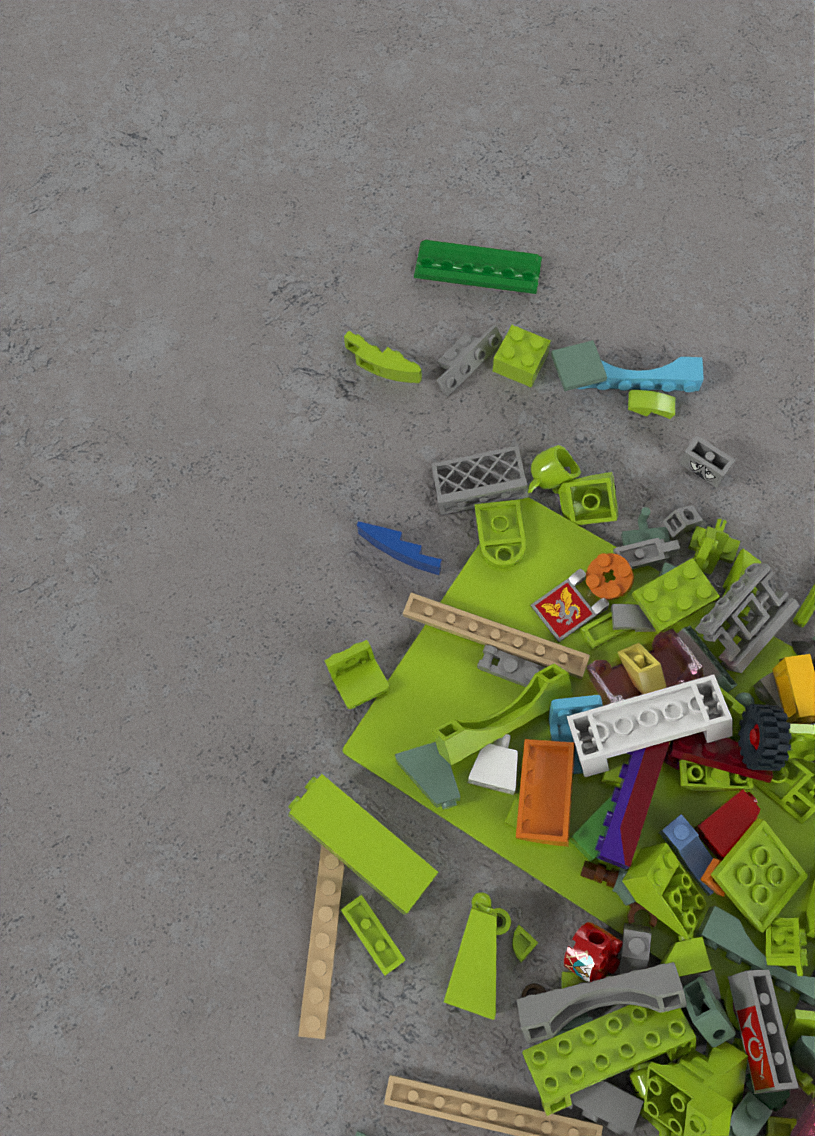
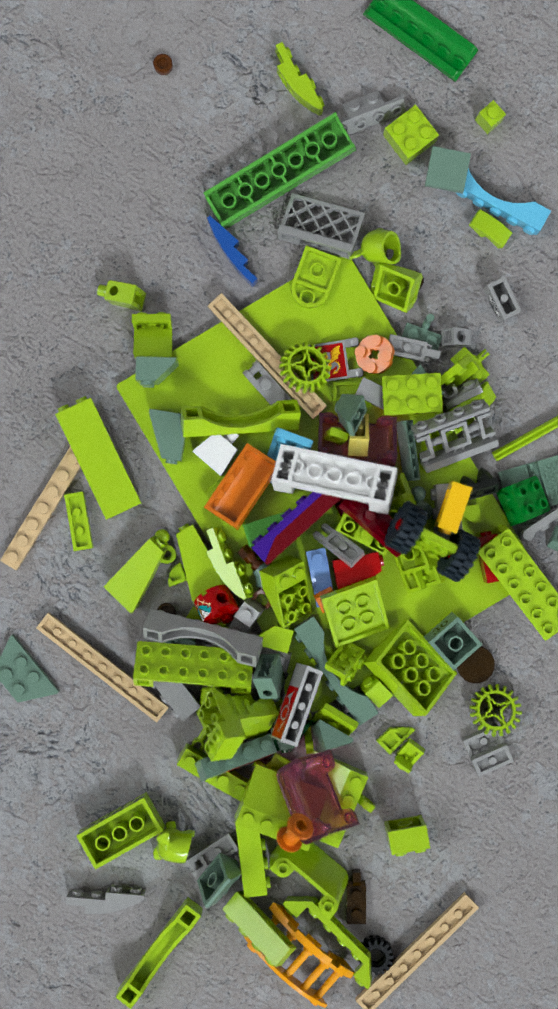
camera: 20 degrees right, 20 degrees up
(237, 407) = (163, 64): none -> reddish brown tile
(303, 646) = (122, 295): none -> lime torso
(379, 707) = (154, 370): none -> sand green slope
(408, 447) = (279, 171): none -> bright green tile
(541, 912) = (196, 563): none -> lime slope
(546, 617) = (303, 383): none -> lime gear
(588, 902) = (229, 571): none -> lime slope
(589, 306) = (490, 117): none -> lime brick
(620, 647) = (351, 411): none -> sand green slope
(620, 680) = (336, 435): none -> lime plate
(694, 803) = (339, 545): none -> light grey hinge
(729, 567) = (468, 390): none -> light grey plate

